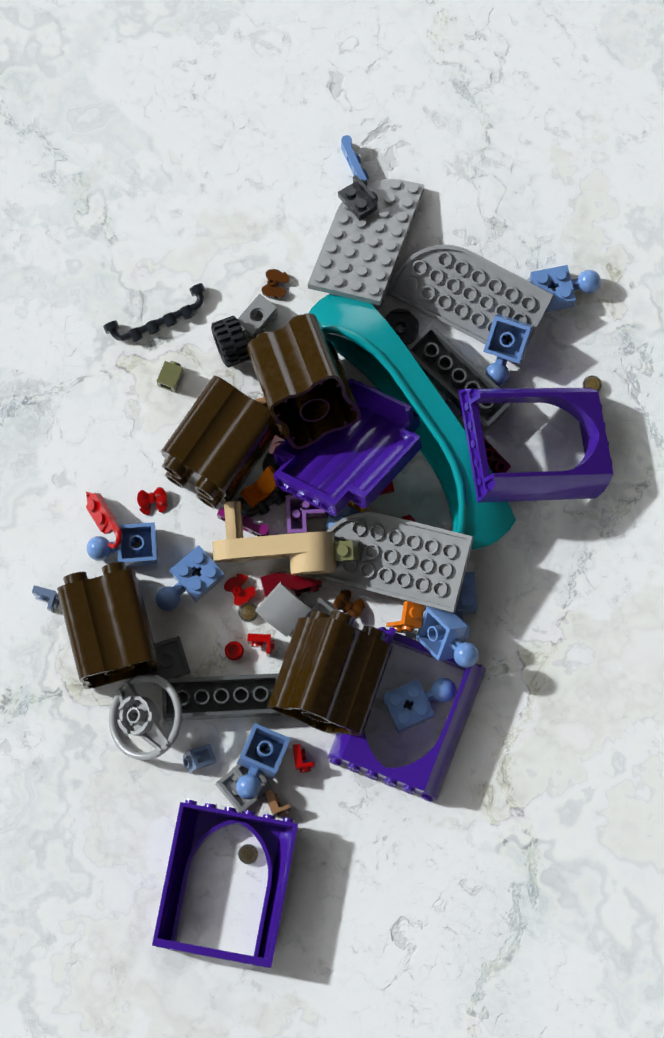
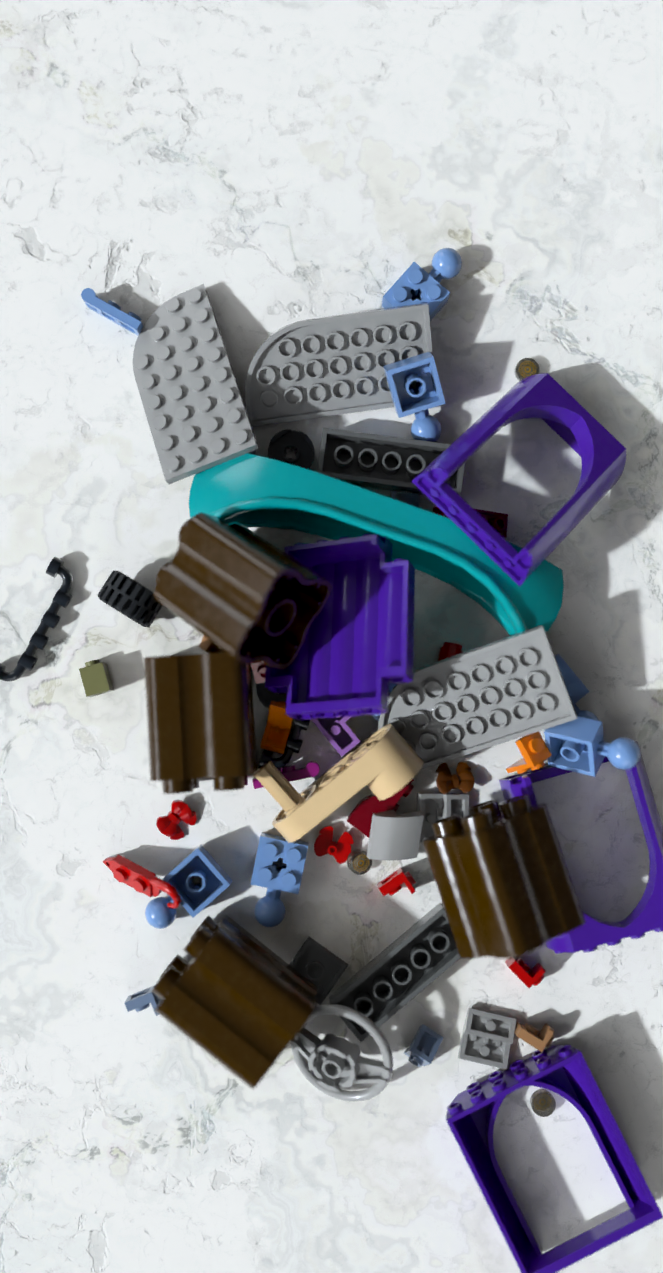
camera: 35 degrees left, 10 degrees up
(234, 650) = (375, 911): red plate -> none
(258, 763) = (500, 1004): medium blue brick -> none
(261, 307) = (131, 538): light grey brick -> none
(272, 289) = (129, 509): reddish brown piece -> none
(347, 551) = (418, 733): olive brick -> none
(359, 198) = (148, 348): black bracket -> none
(421, 711) = (598, 854): medium blue brick -> none

